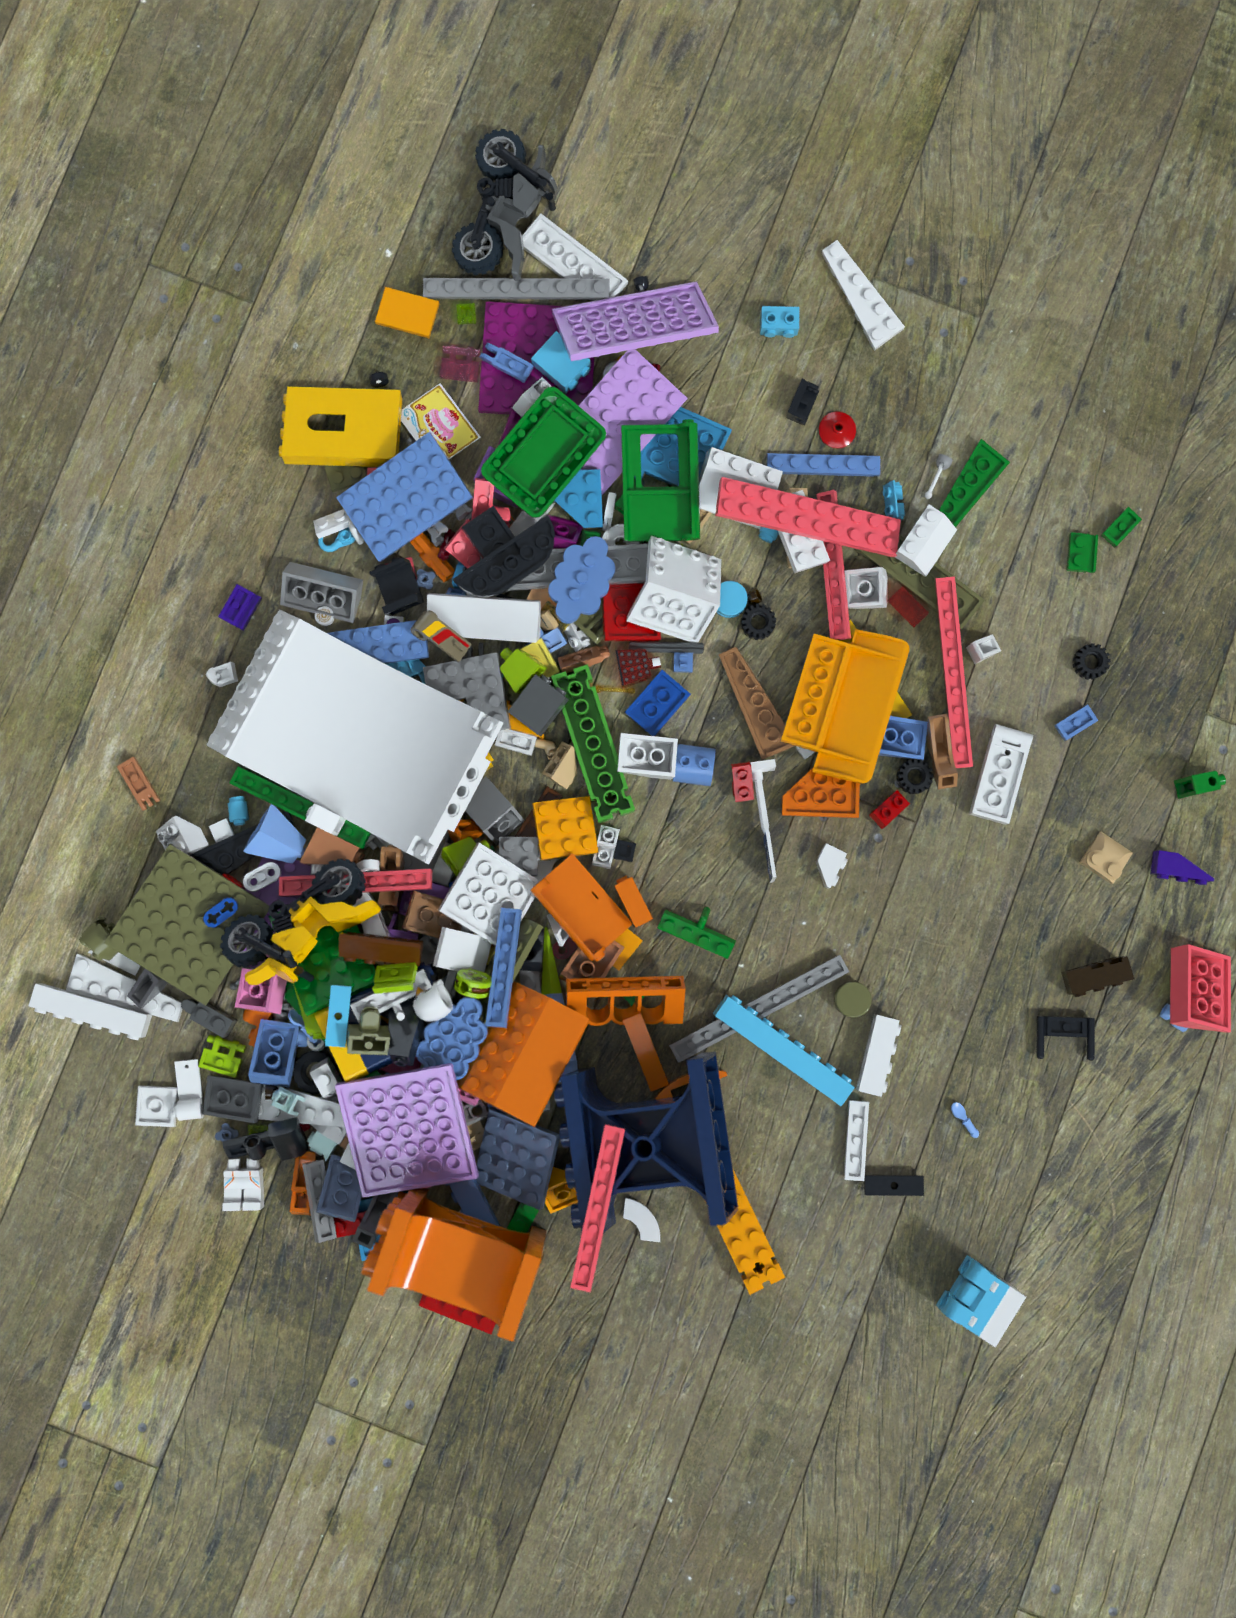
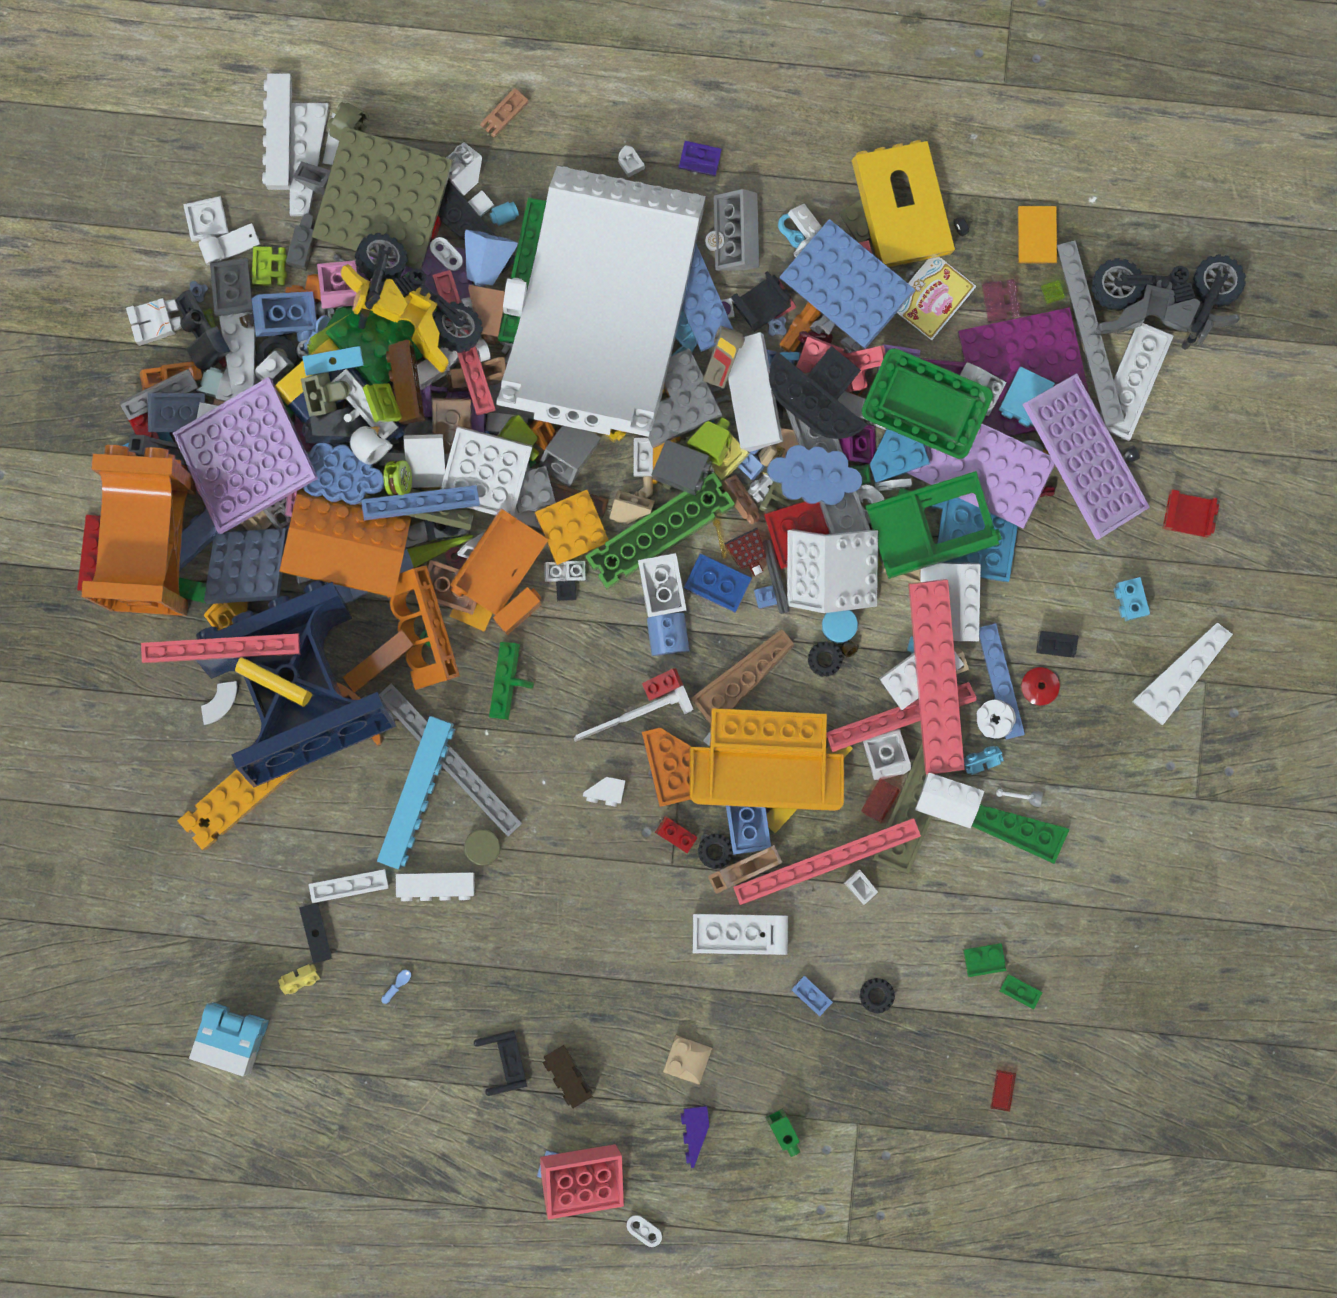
camera: 75 degrees right, 0 degrees up
(218, 908) = (404, 222): blue beam -> none
(286, 1100) = (243, 336): light aqua window -> none
(508, 362) = (1011, 346): medium blue hinge -> none
(647, 1163) = (273, 682): none -> yellow brick
(713, 246) = (1190, 514): none -> red panel
(851, 470) = (985, 716): none -> white plate
(936, 1221) = (307, 976): none -> light yellow hinge
(1208, 569) = (1003, 1090): none -> clear red tile

